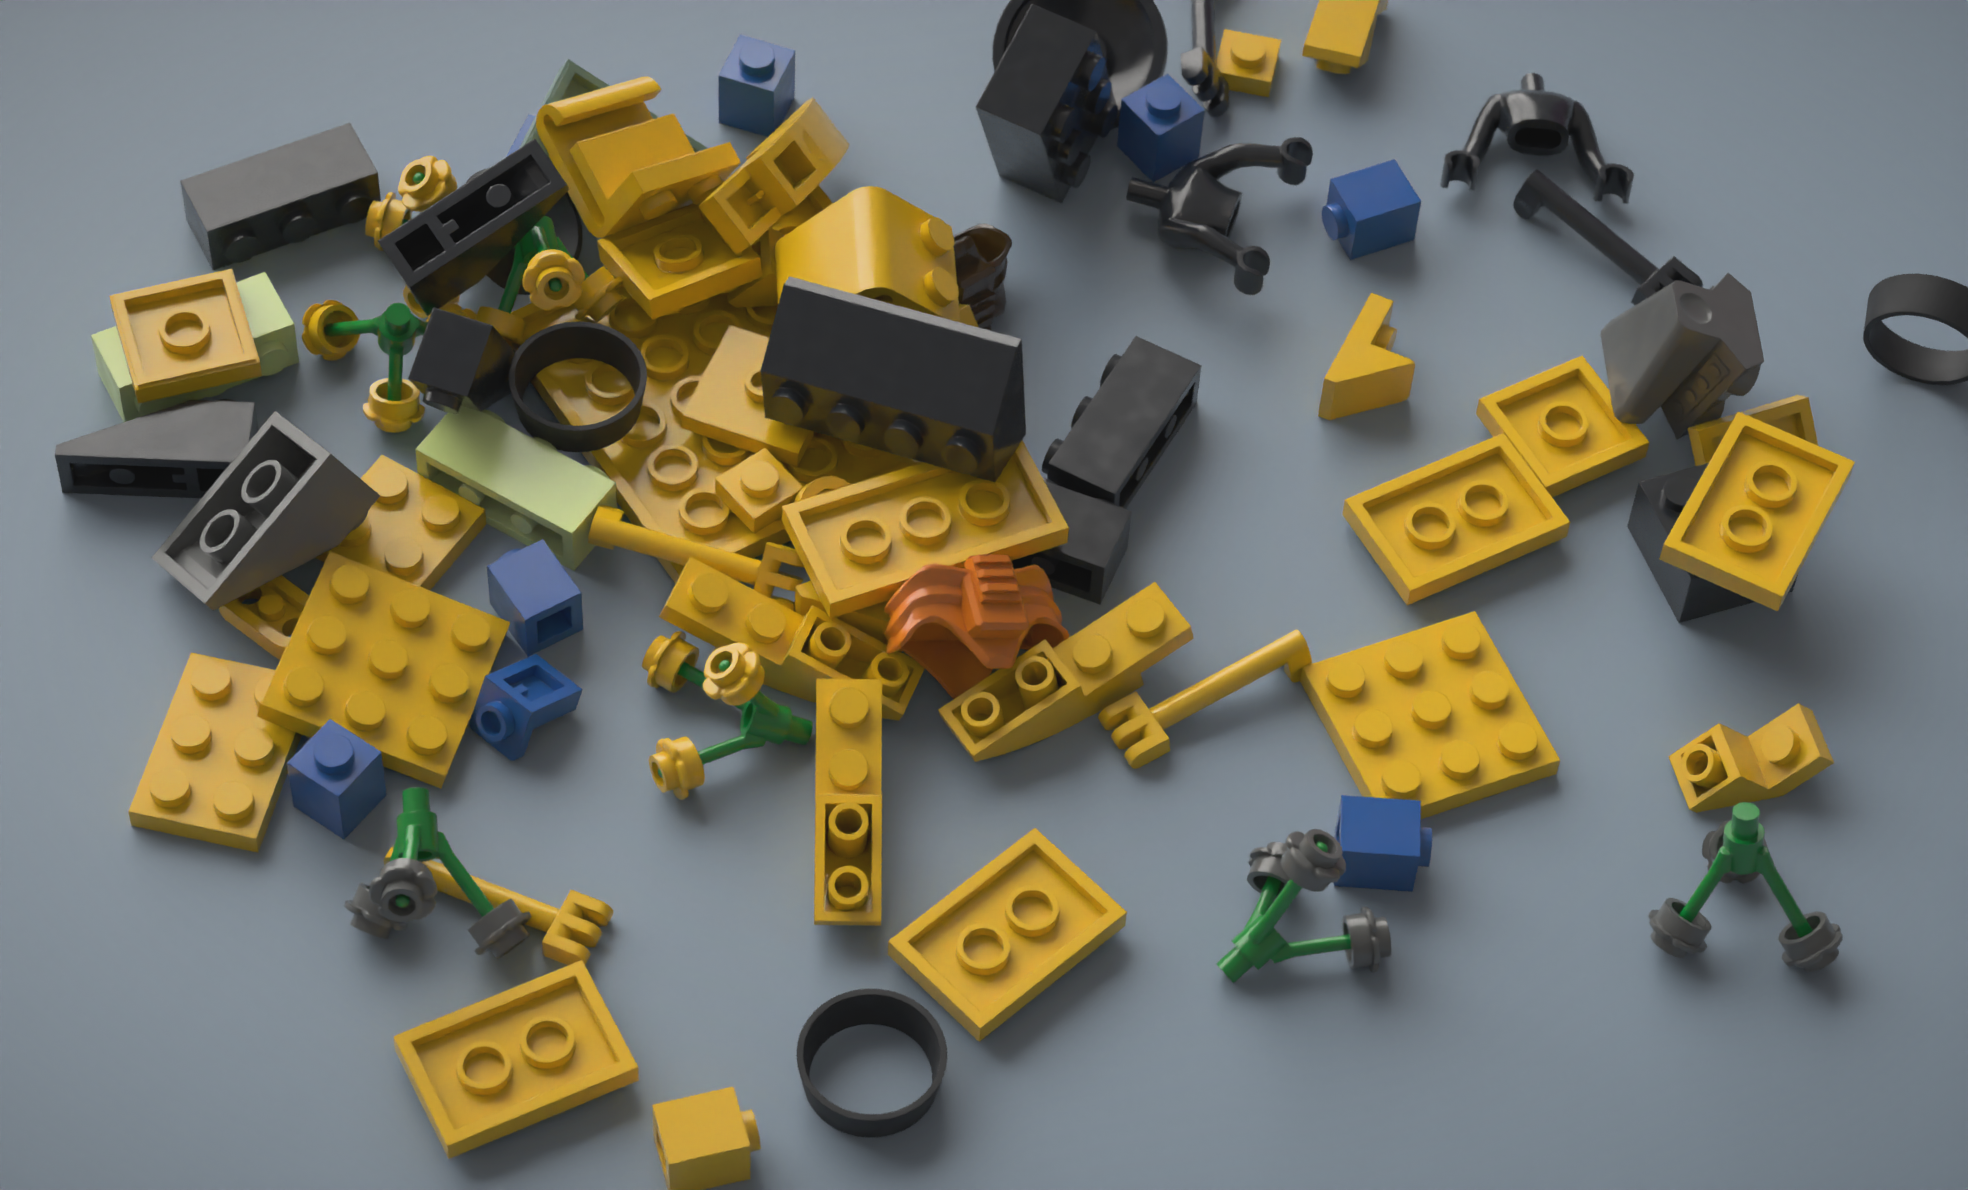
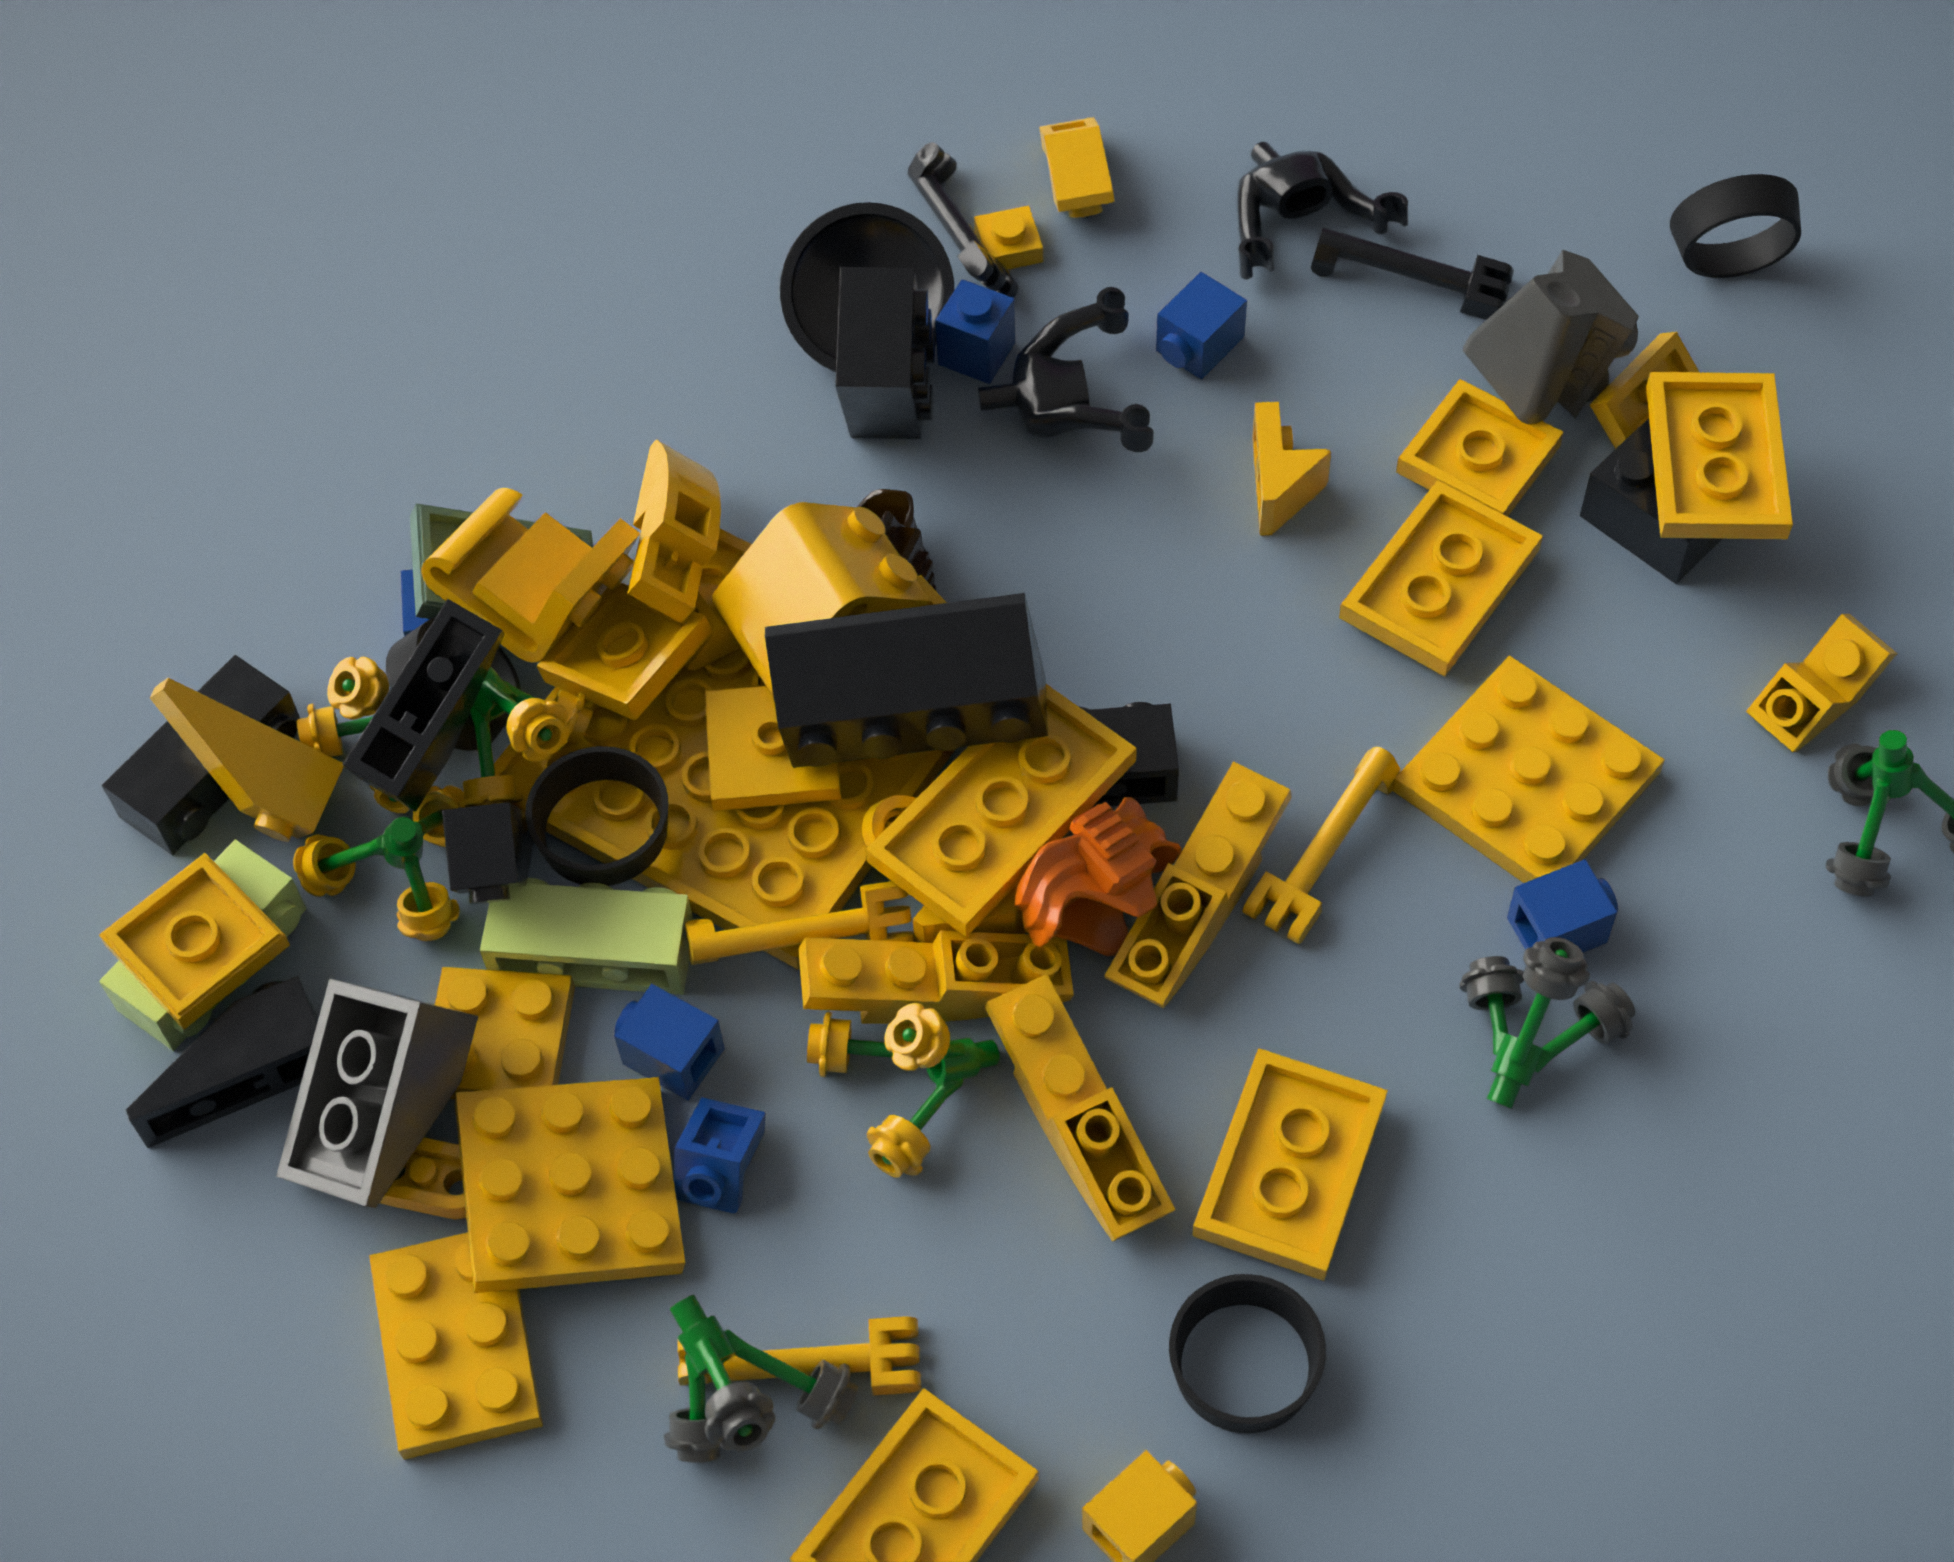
camera: 20 degrees left, 5 degrees up
(315, 219) = (255, 765): none -> yellow slope
(337, 779) = (586, 1318): blue brick -> none
(756, 86) = (592, 450): blue brick -> none
(757, 489) = (821, 839): yellow plate -> none
(1126, 424) = (1106, 622): black brick -> none

